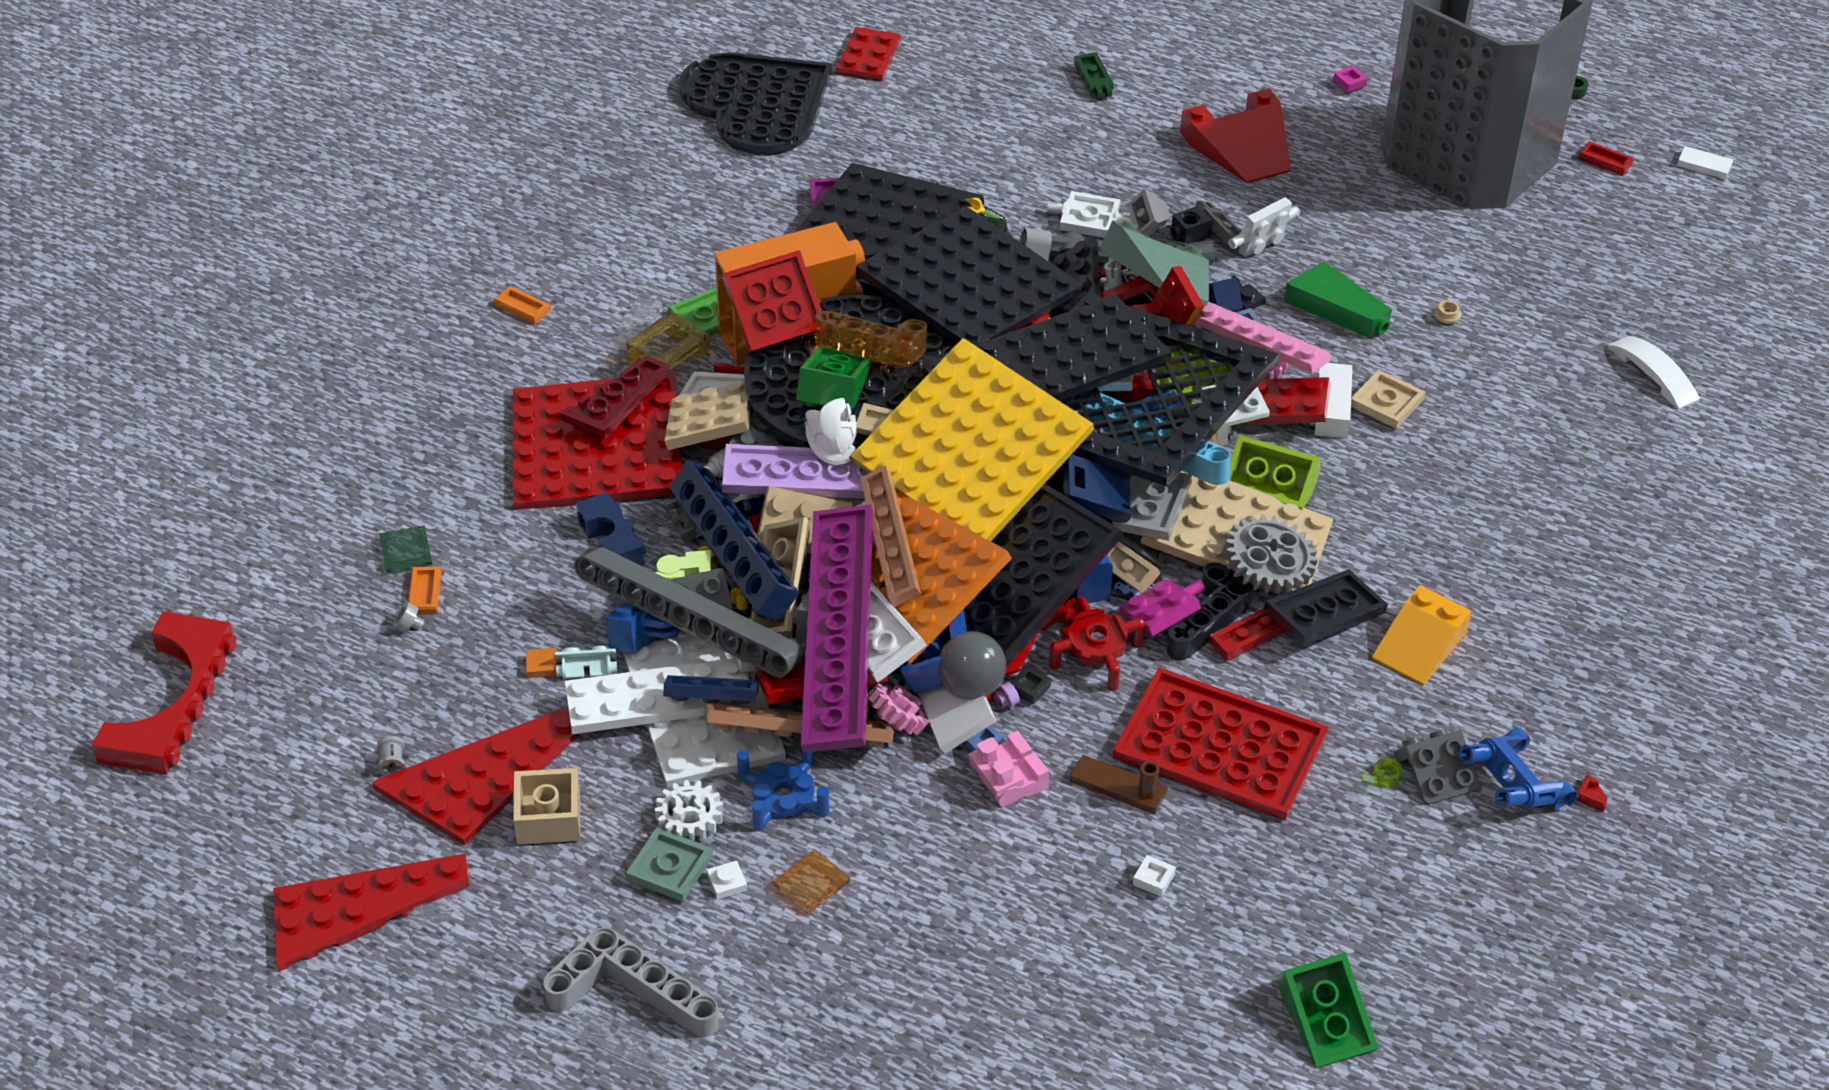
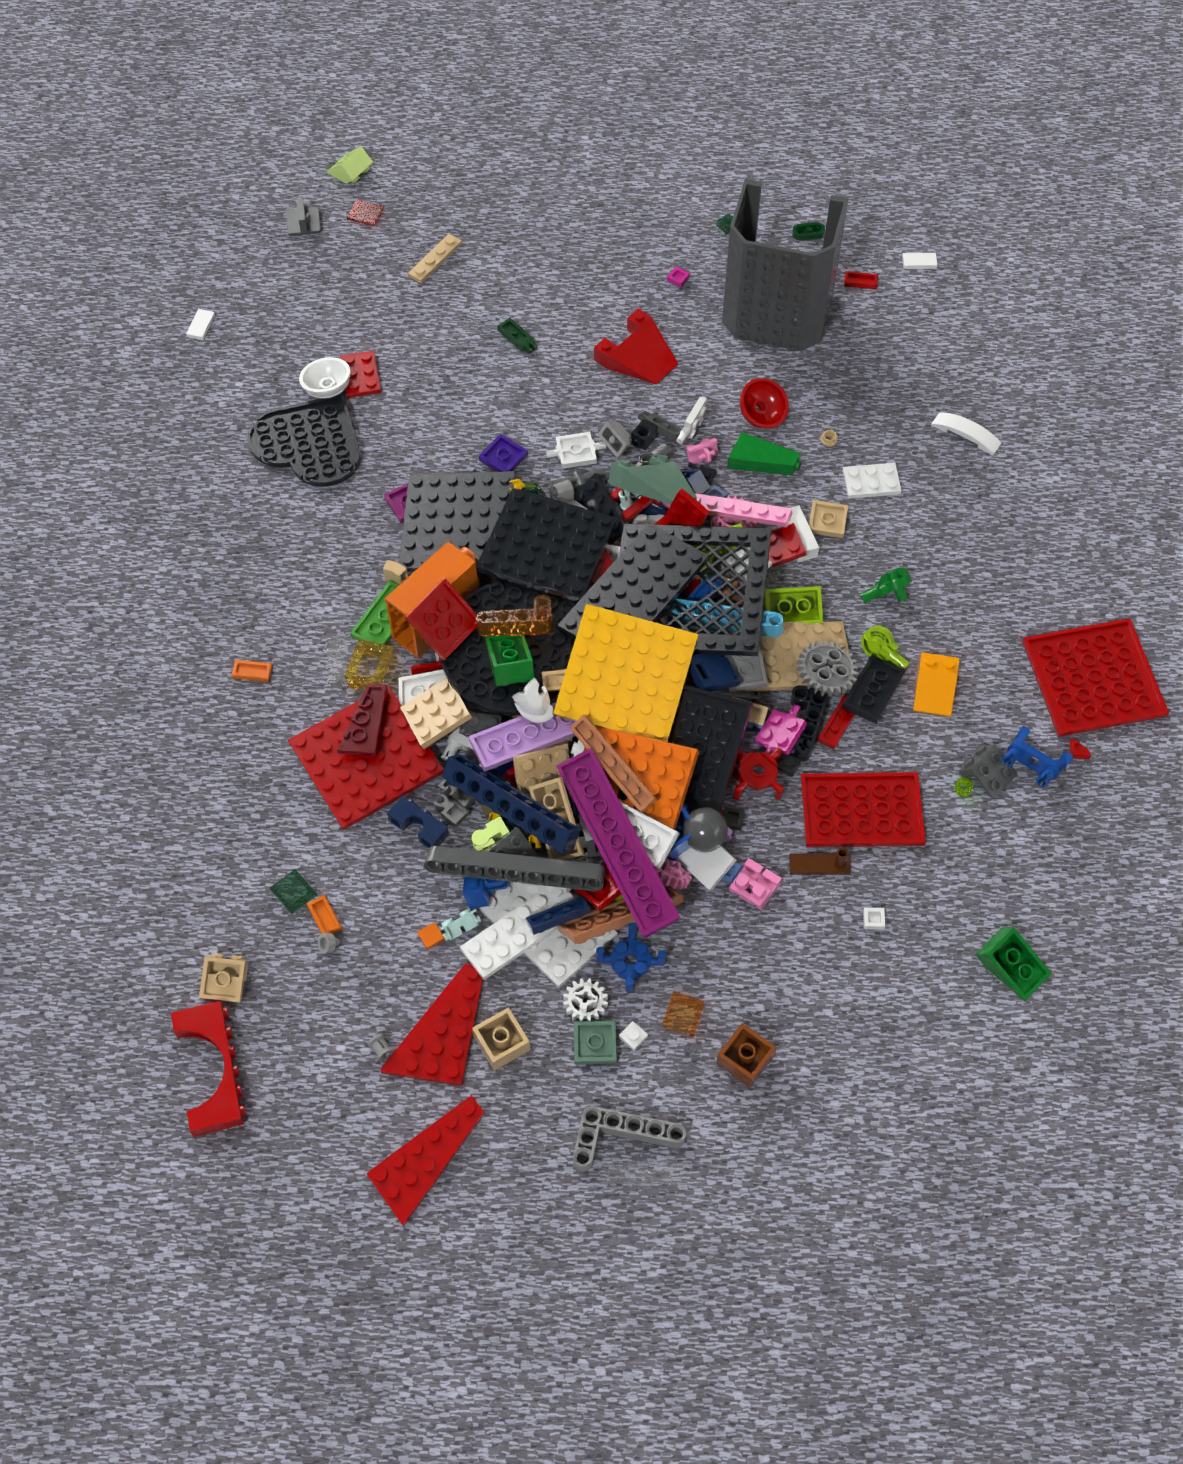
camera: 25 degrees left, 15 degrees up
(254, 603) = (223, 977): none -> tan plate
(663, 538) = (453, 811): none -> flat silver plate
(818, 39) = (325, 377): none -> white hat
(862, 959) = (746, 1055): none -> dark orange brick
(996, 187) = (503, 454): none -> dark purple plate
(1151, 653) = (789, 764): none -> pearl dark grey plate
(1260, 269) = (702, 451): none -> bright pink hips
(1371, 563) = (882, 646): none -> lime pin
(1382, 232) = (770, 400): none -> red hat
(1430, 494) = (890, 581): none -> green pin
(1479, 378) = (871, 480): none -> white plate
(1671, 715) = (1094, 677): none -> red plate

